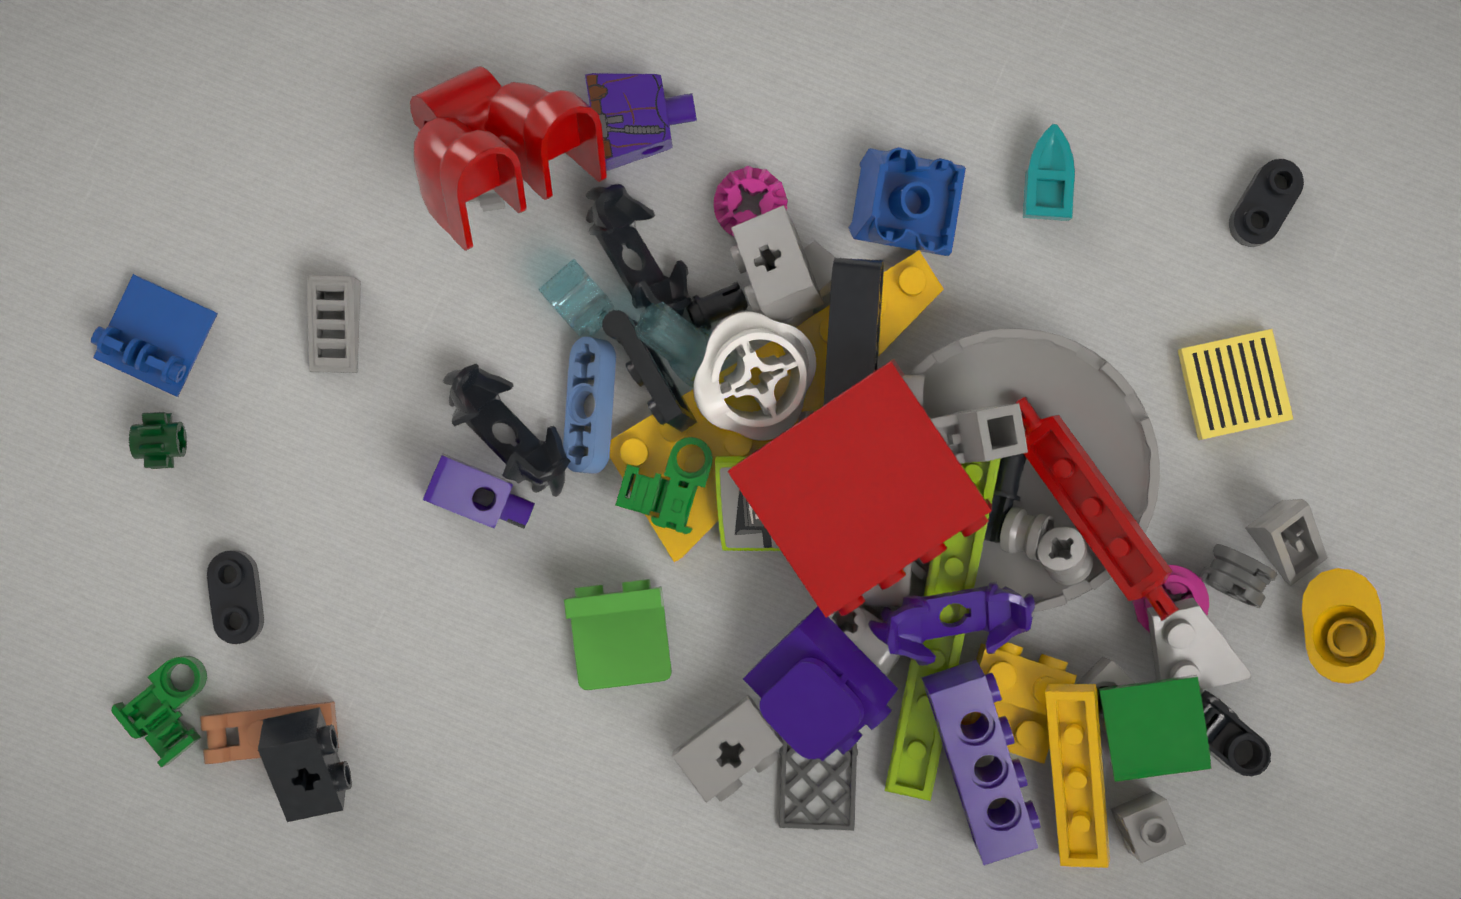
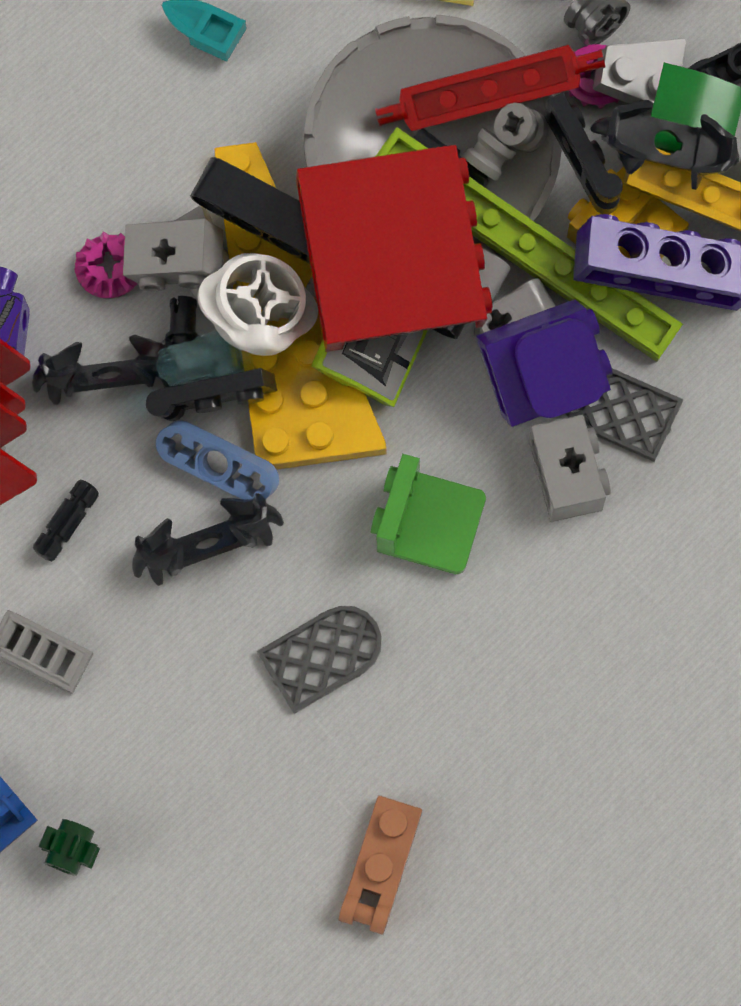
camera: 65 degrees left, 15 degrees down
(154, 712) = (320, 960): green piece -> none
(239, 596) = (242, 845): black plate -> none
(304, 764) = (423, 829): black brick -> none
(405, 559) = (317, 622): none -> dark grey window
(454, 487) = (246, 586): torso -> none
(472, 286) = (65, 520): none -> black axle
(577, 299) = (121, 433): clear light blue brick -> none
(666, 495) = (329, 421): green piece -> none
(907, 201) = (168, 141): blue slope -> none
(984, 433) = (391, 126): light grey brick -> none
(990, 609) = (540, 198): dark purple piece -> none
(1057, 636) = (584, 156): none -> black plate
(1113, 759) = (702, 149): none -> black piece

